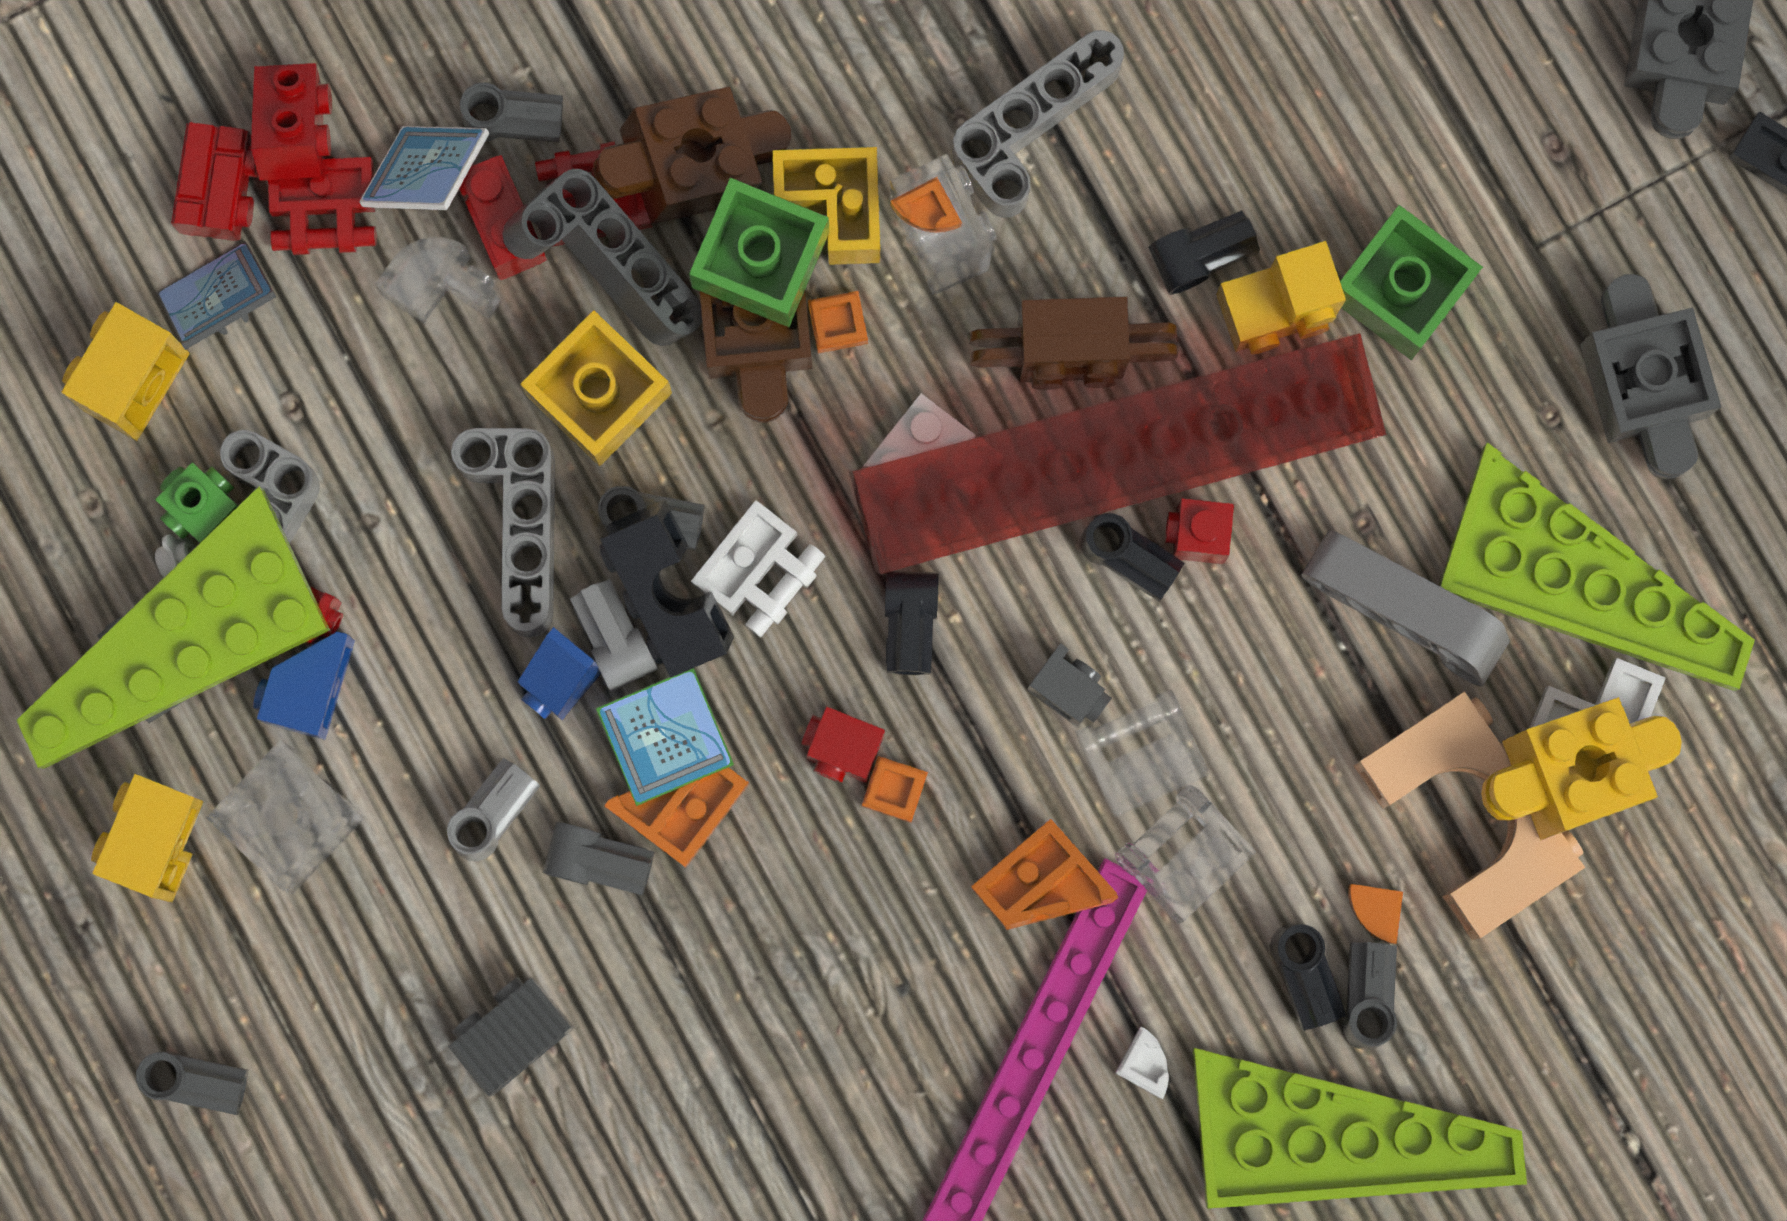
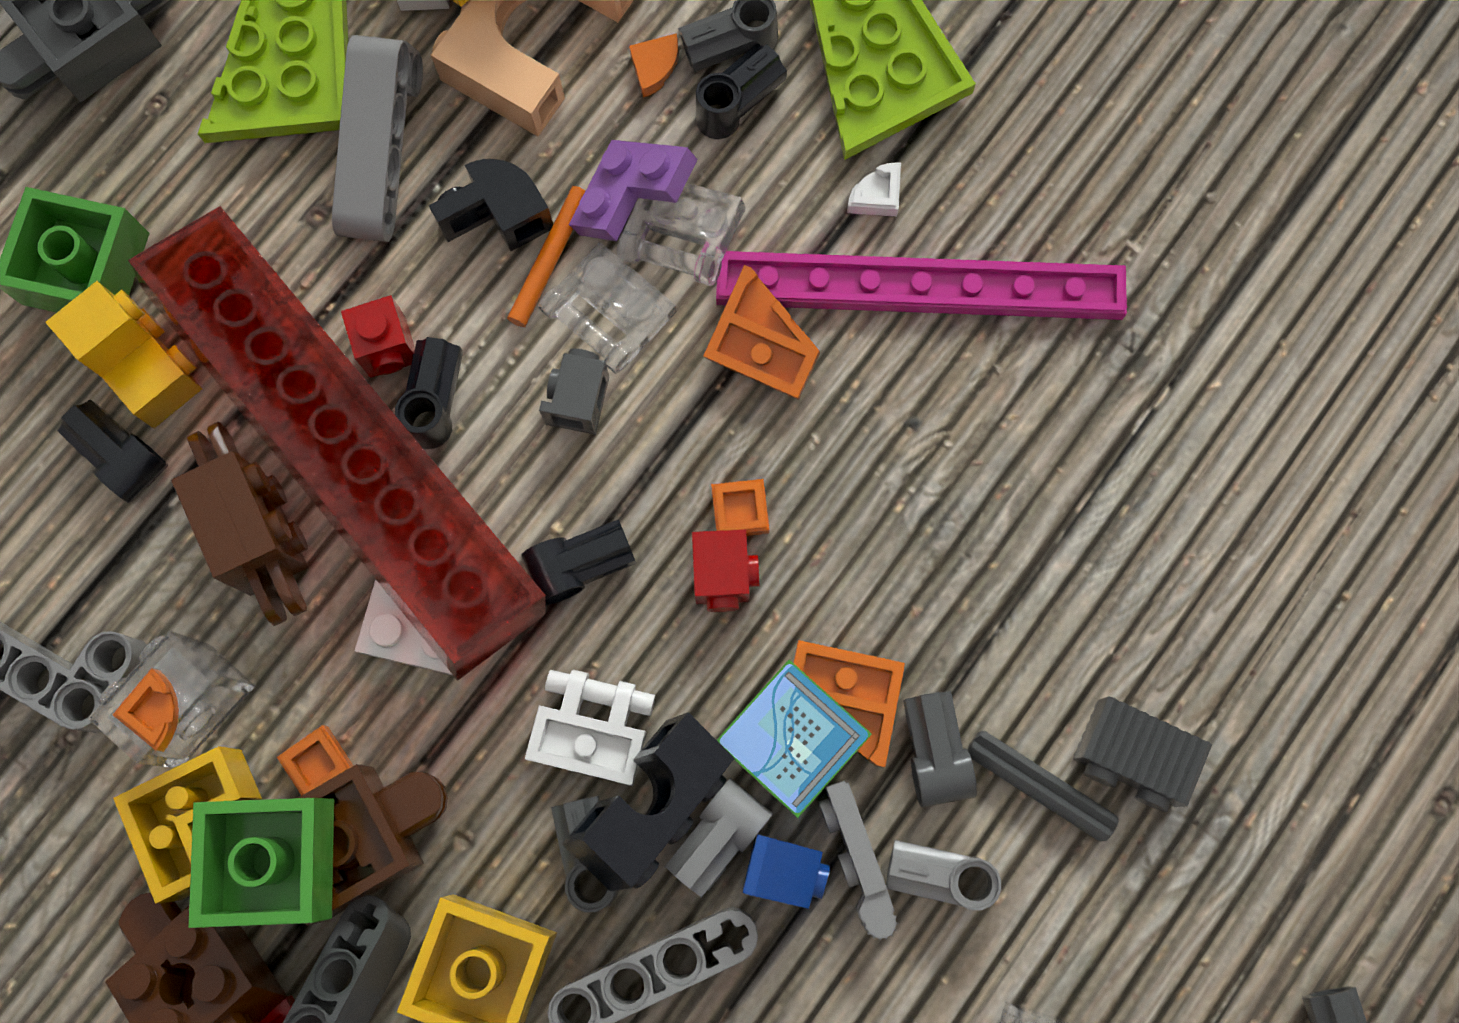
camera: 110 degrees left, 5 degrees down
(524, 937) = (1043, 786): none -> dark grey axle
(536, 746) = (859, 861): none -> light grey hinge
(1220, 721) = (546, 260): none -> orange bar
(1263, 825) = (623, 176): none -> medium lavender plate
(1291, 705) = (497, 194): none -> black brick

